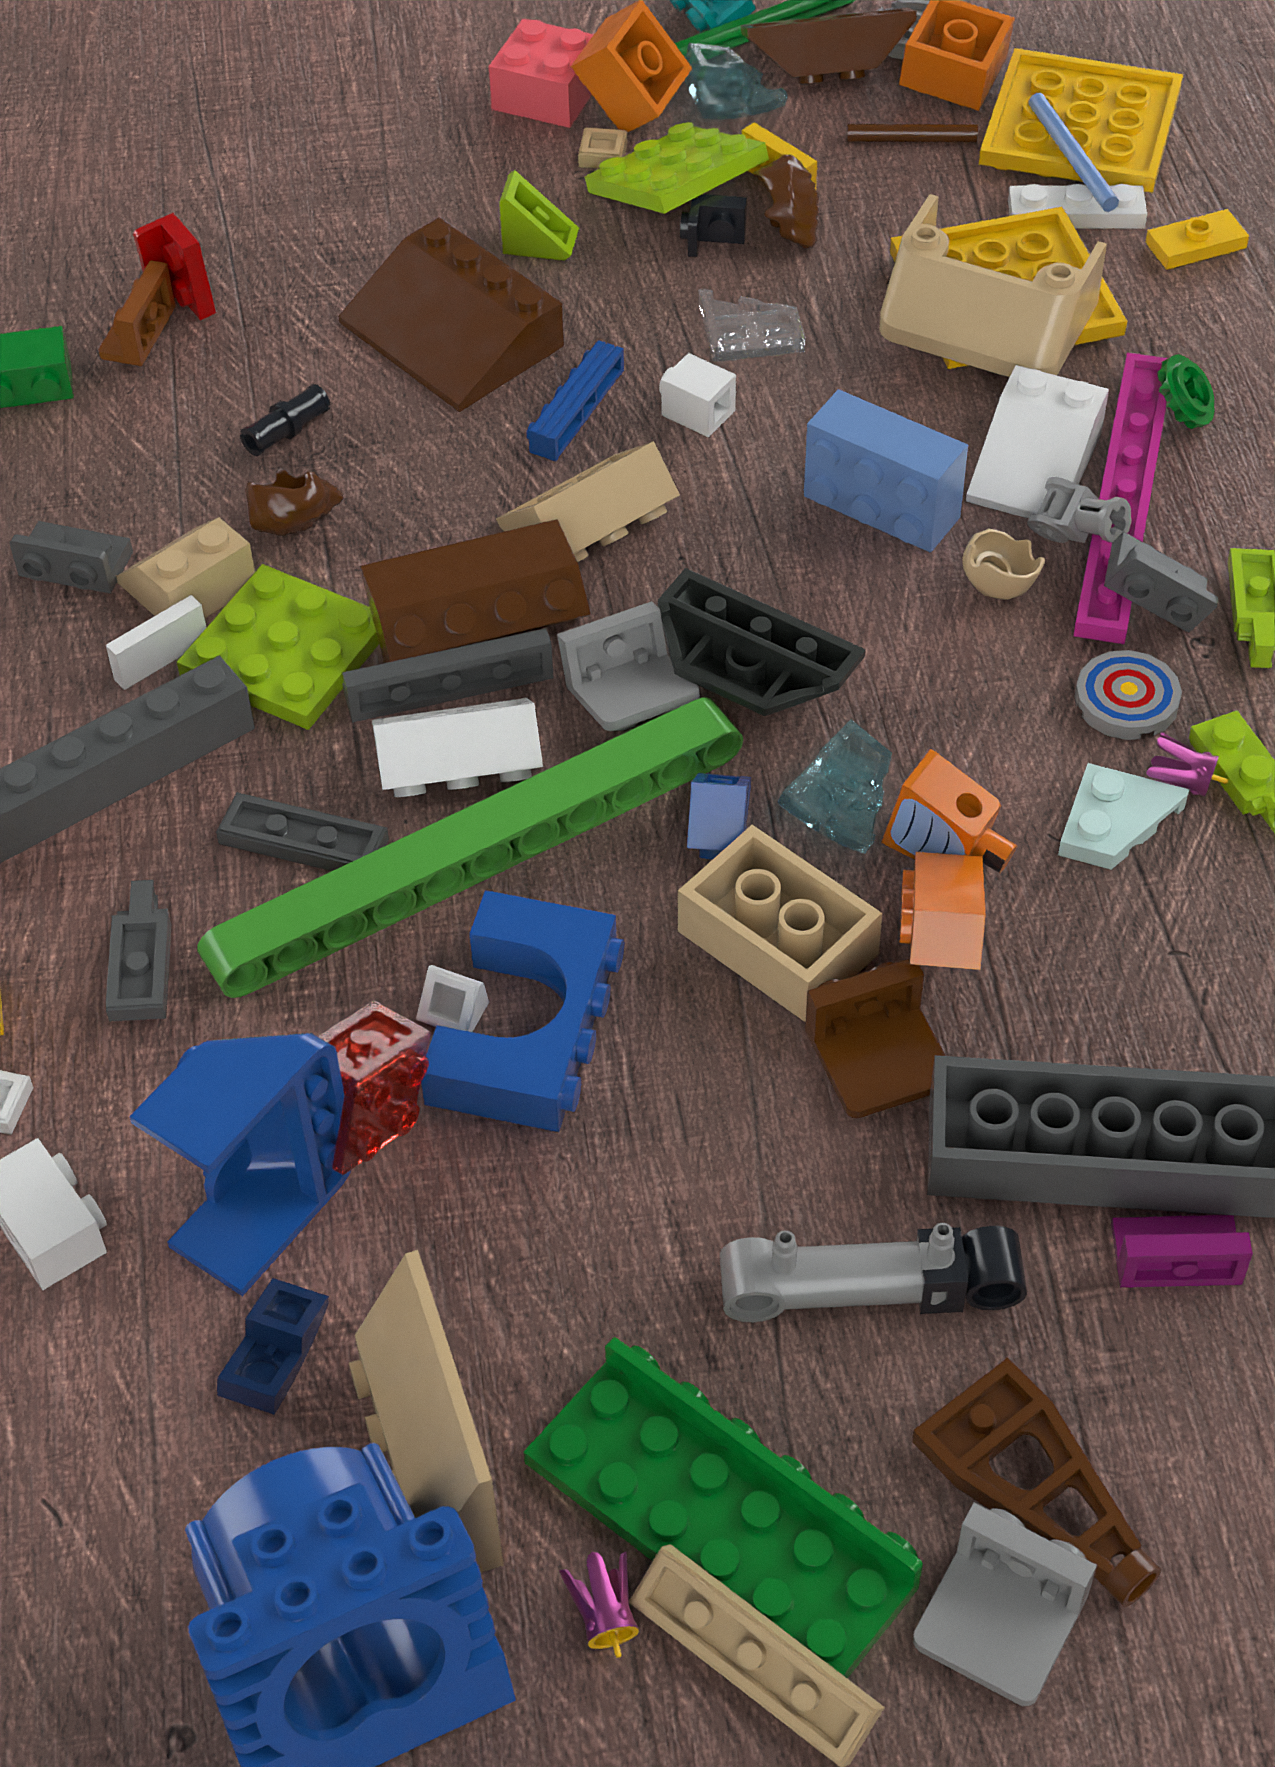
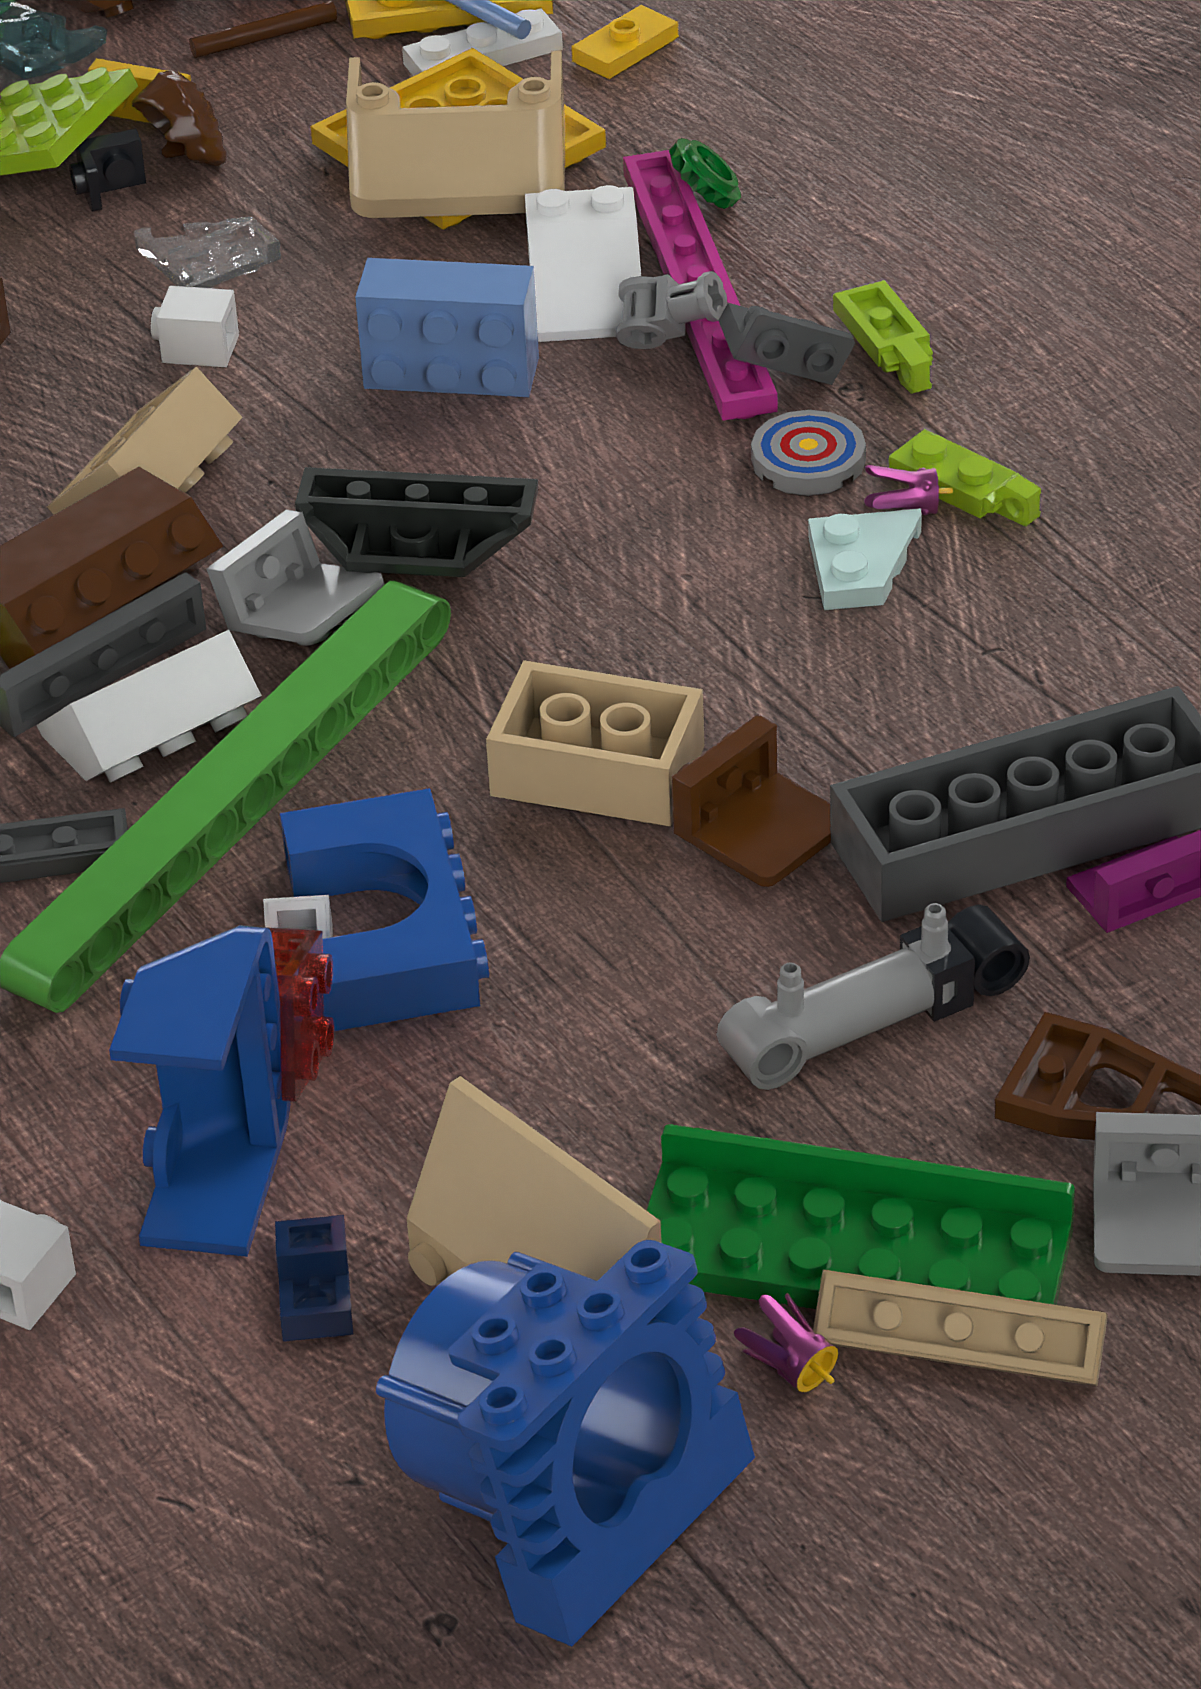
camera: 25 degrees left, 10 degrees down
(575, 400) = (62, 373): blue piece -> none
(717, 812) = (469, 676): slope -> none
(842, 788) = (578, 620): clear light blue slope -> none
(944, 910) = (760, 668): orange brick -> none
(946, 815) = (707, 604): orange torso -> none
(1000, 564) = (615, 380): tan hair -> none

